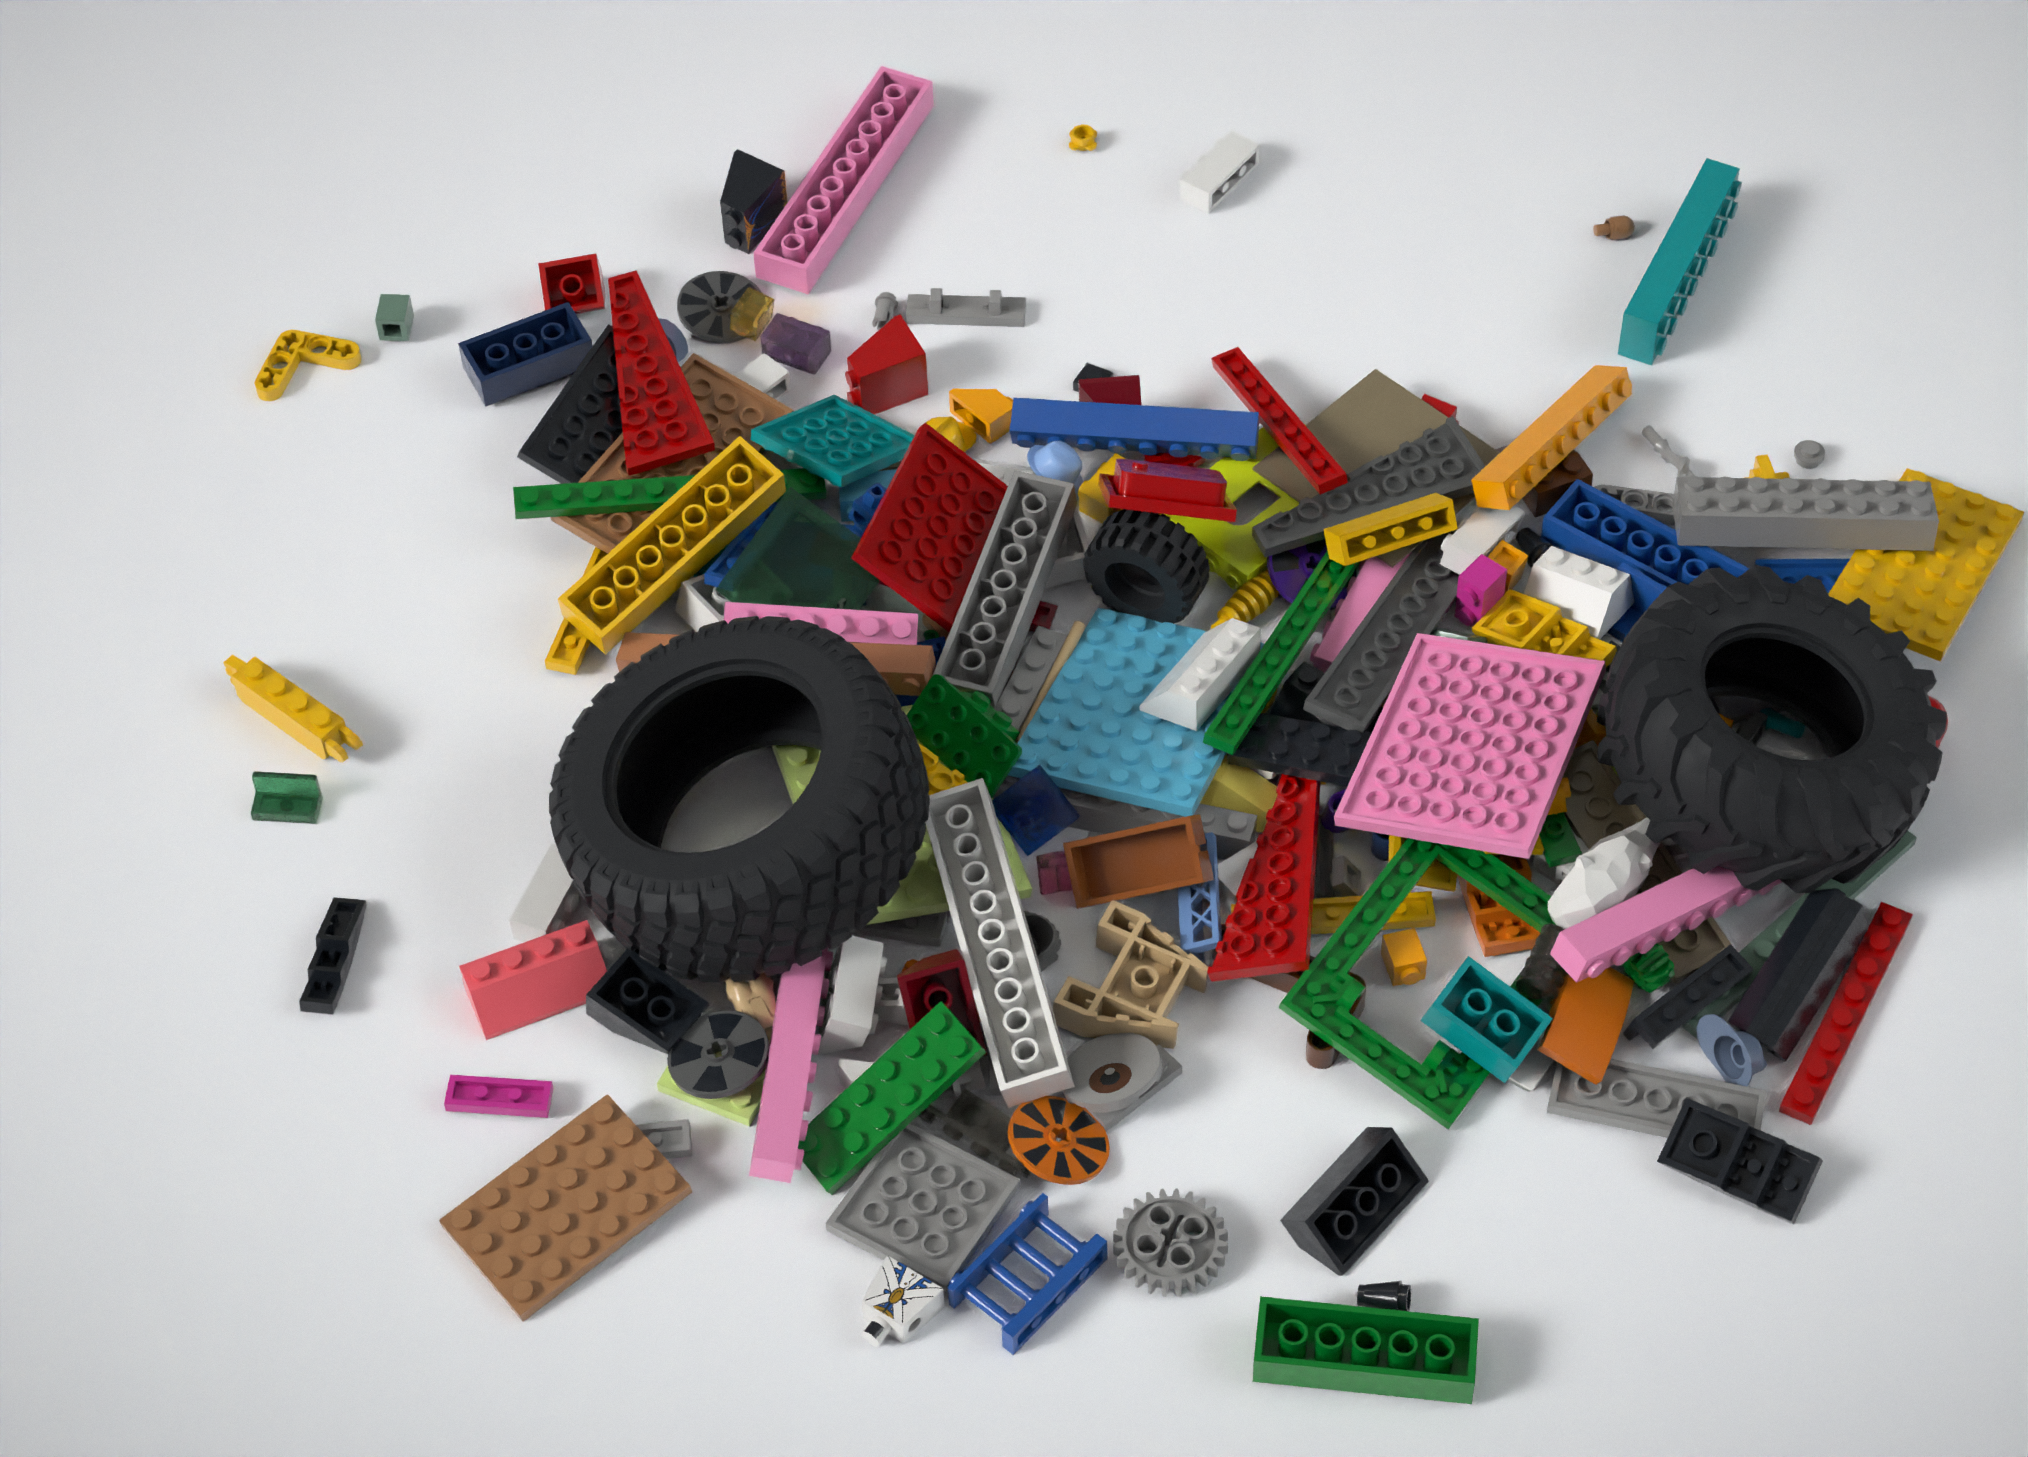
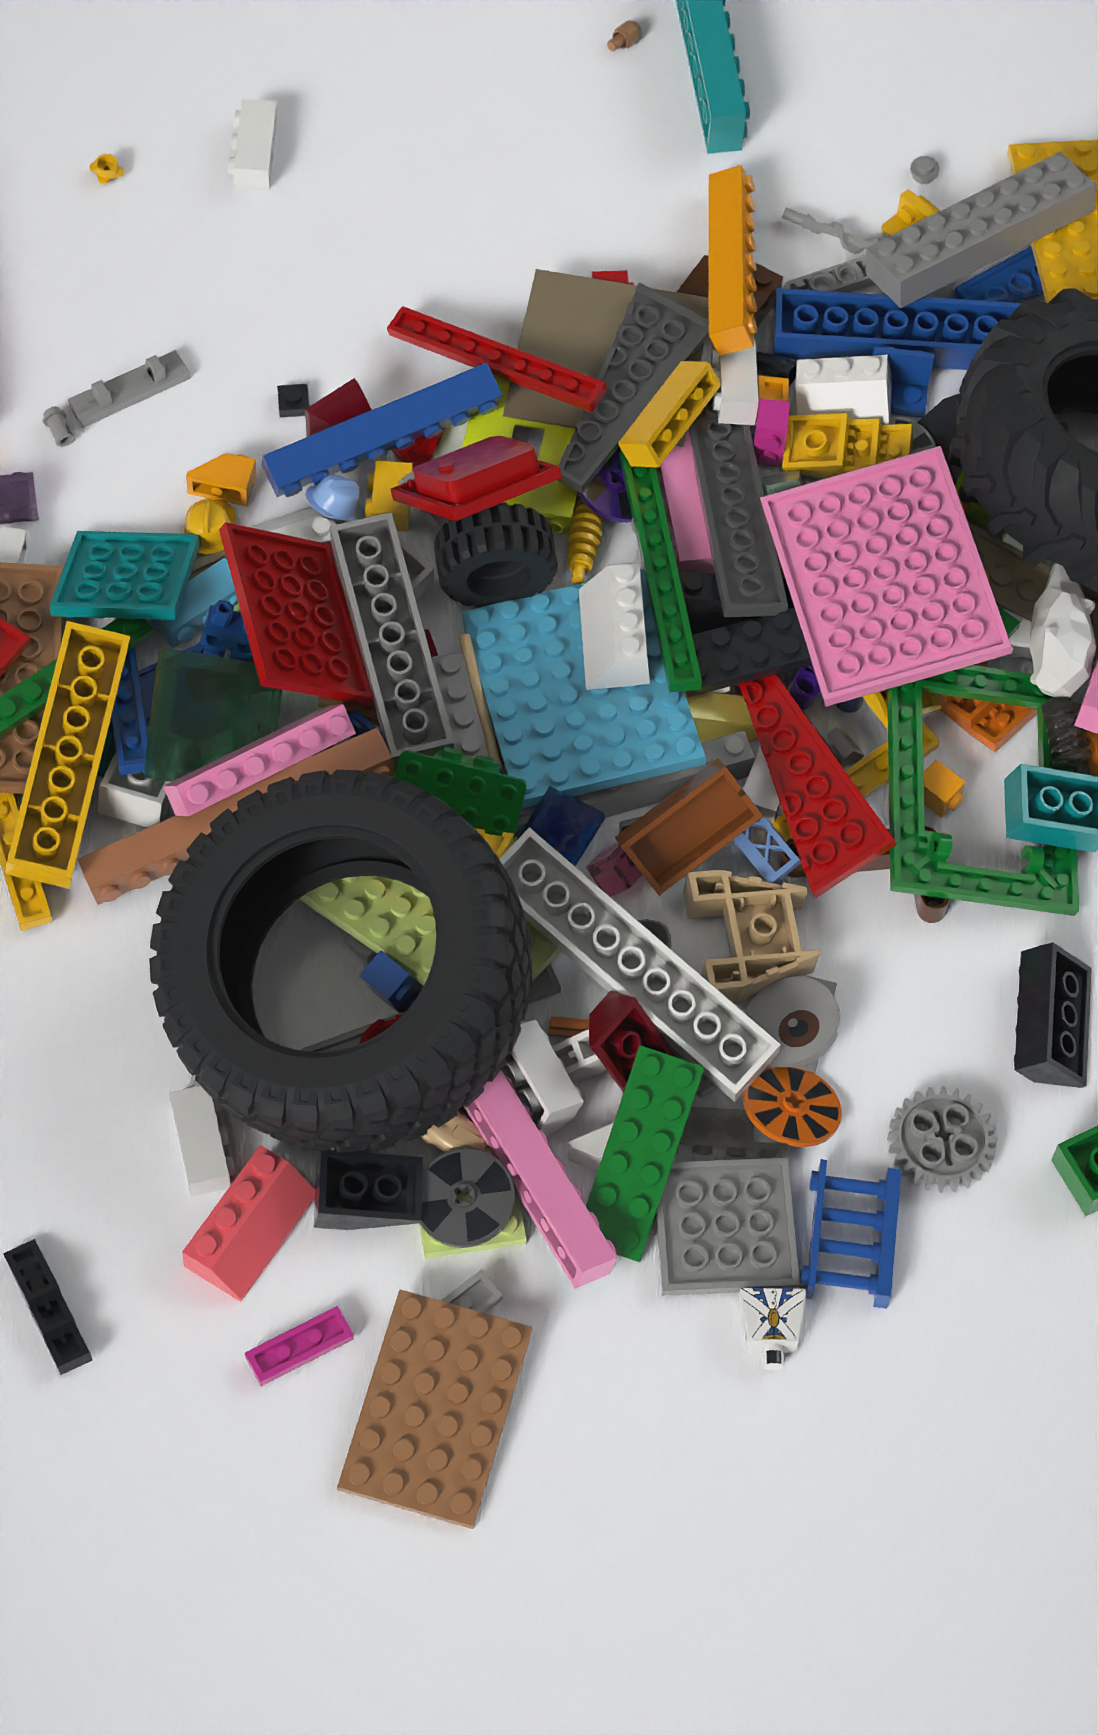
camera: 40 degrees left, 10 degrees up
(887, 369) = (116, 481): red slope -> none
(1783, 724) = (1077, 422): teal arm -> none

